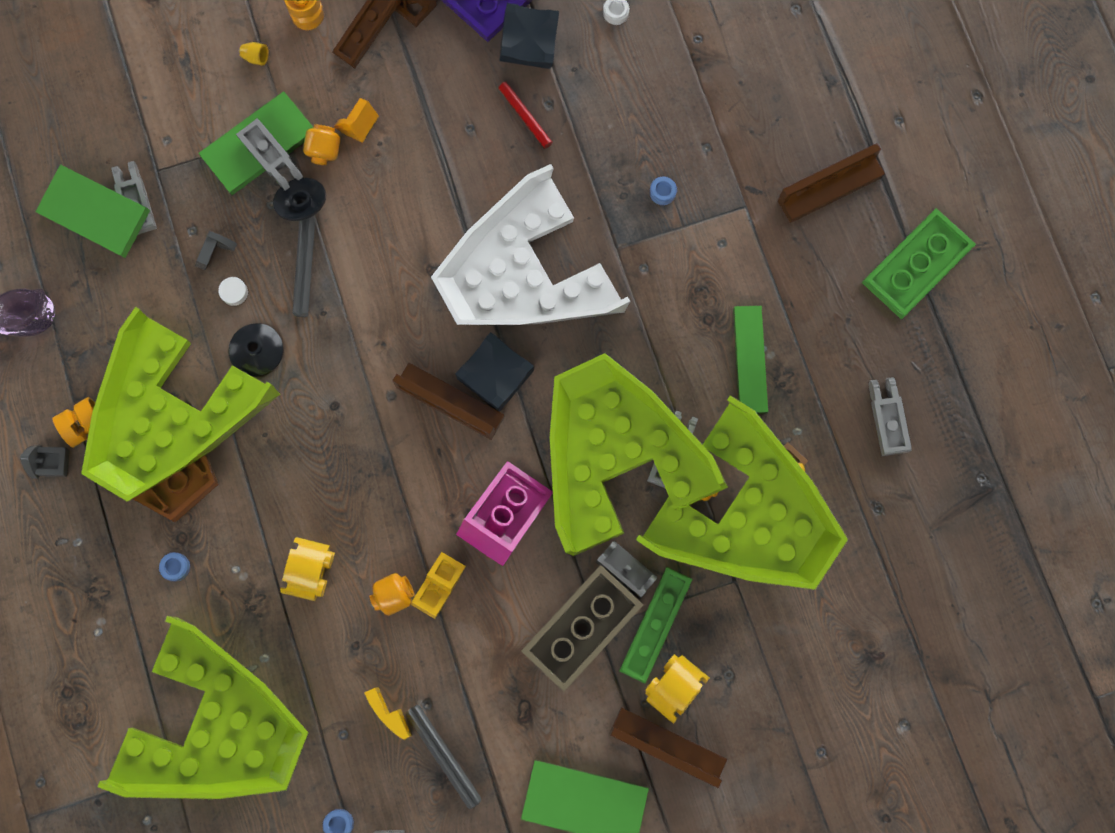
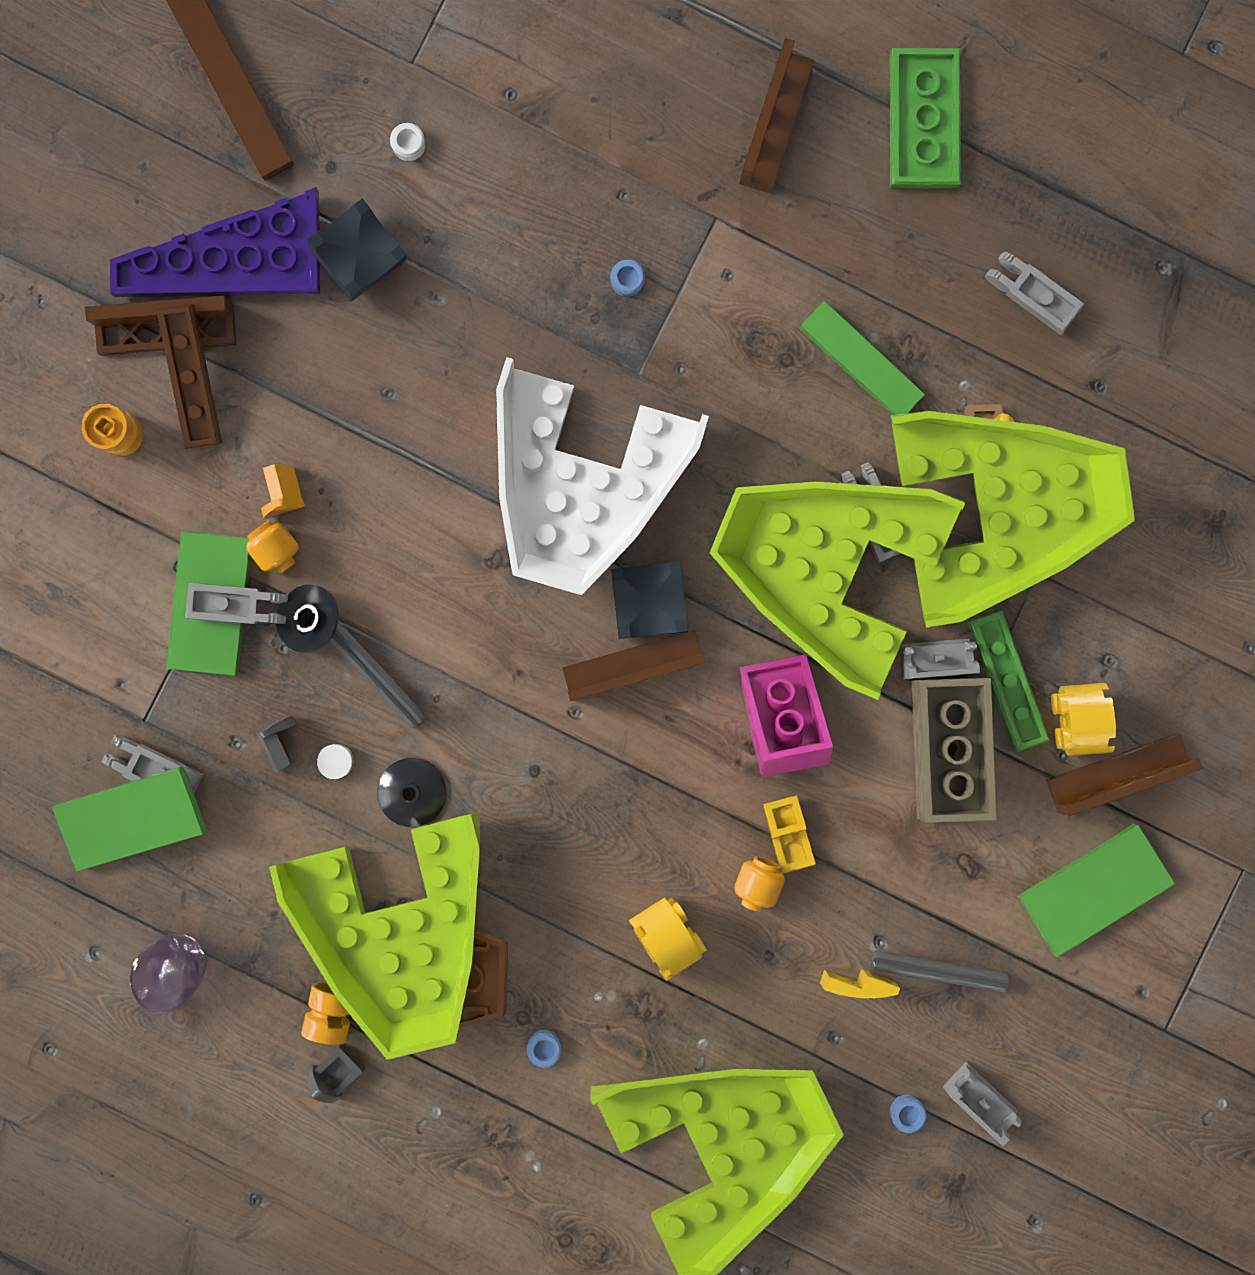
camera: 40 degrees left, 10 degrees up
(254, 53) = (114, 521): yellow hose -> none
(525, 115) = (427, 330): red bar -> none

